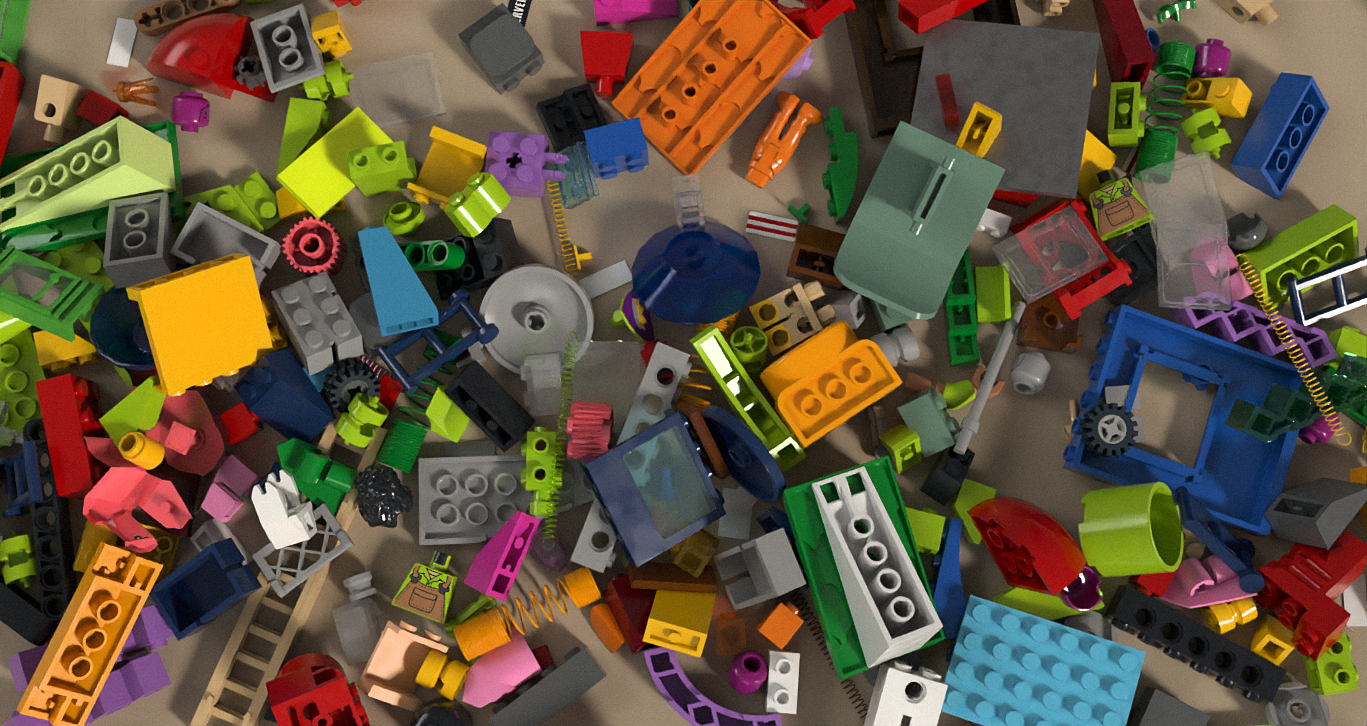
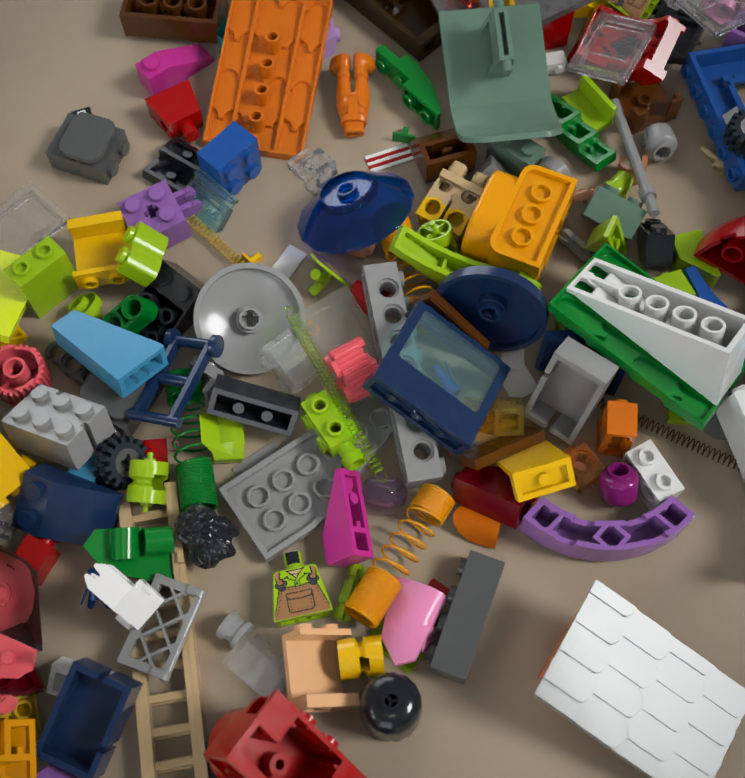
camera: 30 degrees left, 15 degrees down
(239, 477) = (60, 604): bright pink piece -> none

